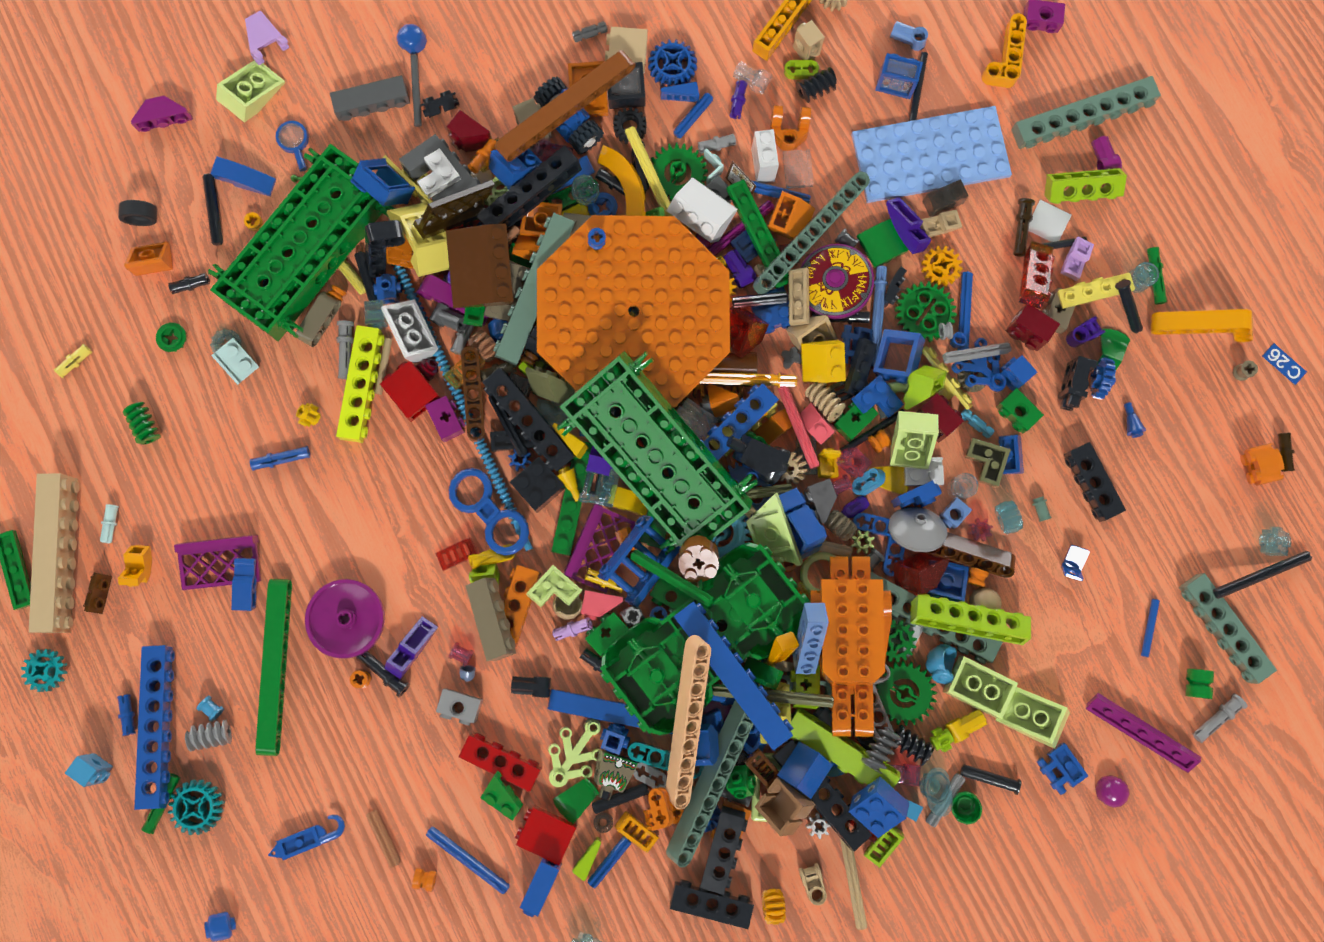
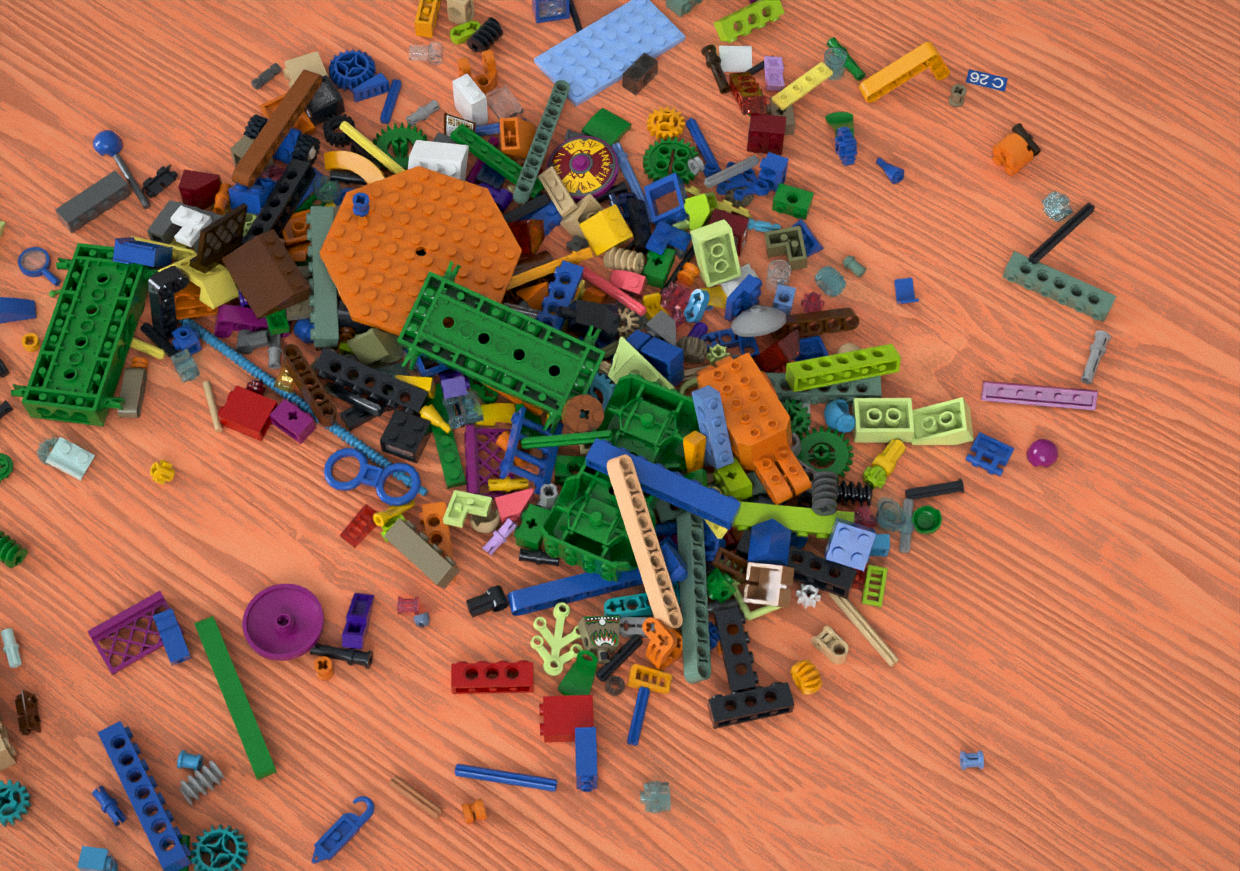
camera: 25 degrees left, 20 degrees down
(137, 566) = (57, 669): light orange brick -> none
(271, 460) = (133, 534): blue pin -> none
(345, 340) = (166, 400): light grey pin -> none
(363, 337) = (207, 470): neon yellow brick -> none
(410, 330) = (226, 361): white slope -> none
(471, 706) = (419, 643): light grey brick -> none
(484, 345) = (303, 342): nougat gear -> none
(502, 797) = (509, 705): green wing -> none
(525, 461) = (378, 424): blue gear -> none
(585, 863) = (616, 729): lime slope -> none
(610, 742) = (584, 599): blue brick -> none
(715, 161) = (427, 126): light aqua bracket -> none
(738, 99) = (423, 74): dark purple pin -> none
(784, 697) = (722, 487): olive axle -> none
(893, 288) = (635, 155): black slope -> none
(908, 225) = (620, 106): dark purple slope -> none
(941, 224) = (648, 95): tan slope -> none
(977, 577) = (831, 339): orange wheel -> none
(1075, 382) = (825, 158): black hips -> none
(1087, 331) = (812, 123): dark purple piece -> none
(1104, 486) = (882, 219): black brick -> none
(1129, 305) = (836, 86): black axle -> none
(1150, 628) = (997, 316): blue bar -> none
(1199, 683) = (1062, 338): green wheel -> none

